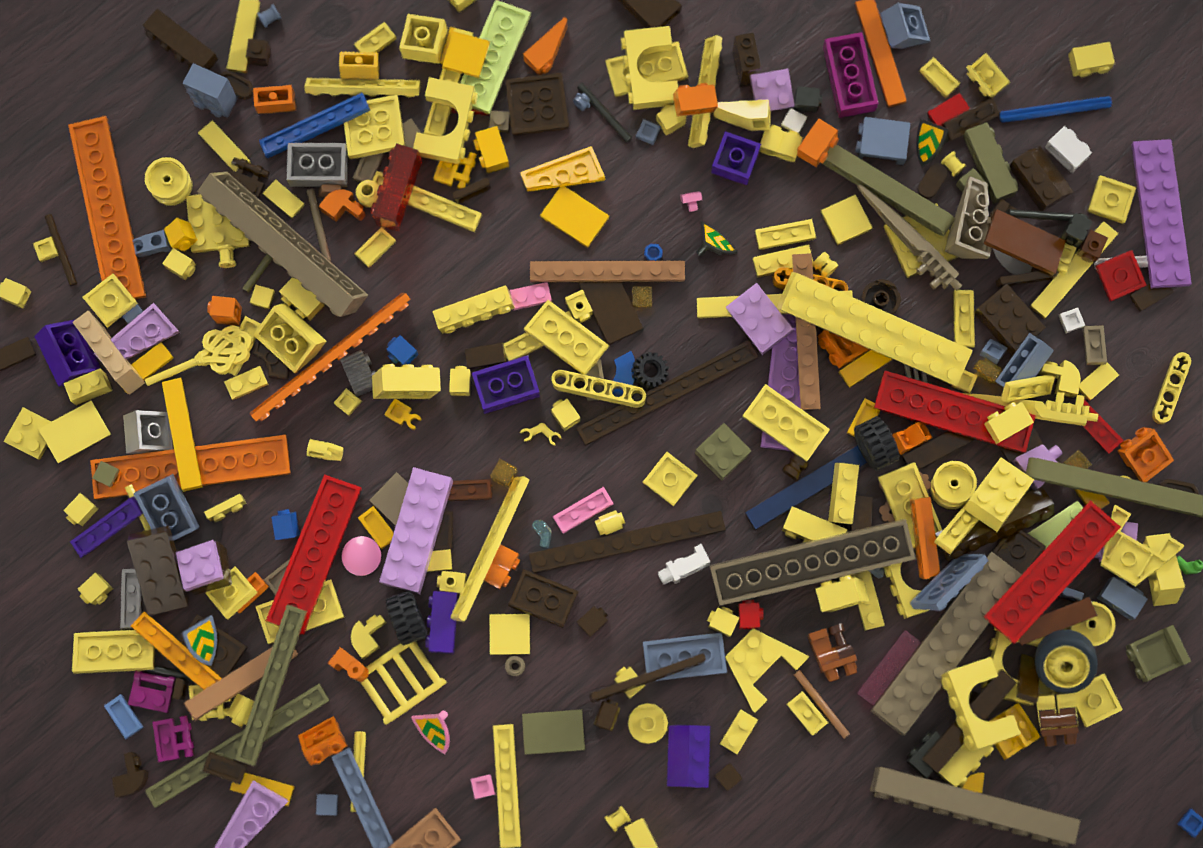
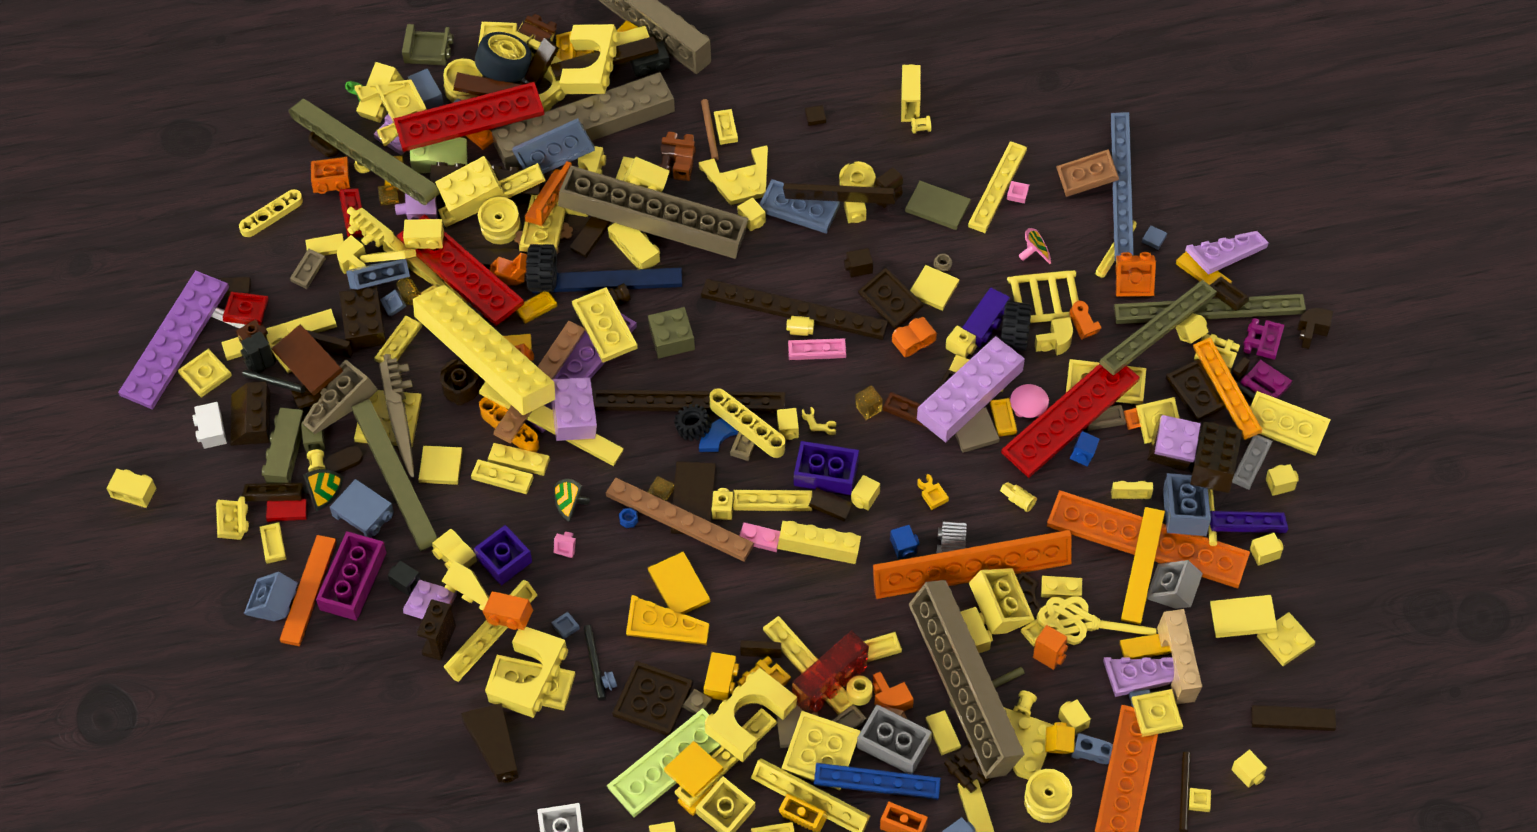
camera: 150 degrees left, 20 degrees down
(66, 351) = (1222, 690): dark purple slope -> none
(88, 386) = (1214, 648): light yellow brick -> none
(105, 474) = (1229, 563): olive tile -> none
(123, 716) = (1300, 375): medium blue tile -> none
(202, 640) = (1203, 387): shield -> none
(229, 686) = (1188, 346): medium nougat tile -> none
(262, 297) = (1009, 654): light yellow tile -> none
(318, 224) = (922, 690): dark tan bar -> none
(347, 402) = (976, 528): light yellow tile -> none
(406, 382) = (915, 502): light yellow brick -> none
(489, 549) = (916, 344): light yellow tile -> none
(543, 53) = (615, 742): orange slope -> none
(544, 531) = (859, 346): clear light blue arm -> none
(566, 337) = (750, 482): light yellow tile -> none
(669, 120) = (540, 620): light yellow brick -> none
(670, 479) = (728, 338): light yellow tile -> none
(685, 566) = (758, 261): white hips -> none
(688, 756) = (838, 138): dark purple slope -> none
(738, 731) = (787, 140): light yellow plate -> none
(749, 615) = (728, 203): red brick -> none
(794, 121) = (428, 568): white tile -> none
(817, 143) = (423, 523): orange brick -> none
(825, 265) = (485, 434): light yellow wheel -> none
(843, 493) = (592, 254): light yellow brick -> none
(888, 668) = (640, 127): clear pink plate -> none
(1019, 550) = (480, 148): dark brown tile -> none
(1055, 109) = (194, 465): blue axle -> none
(1071, 320) = (311, 296): white plate -> none

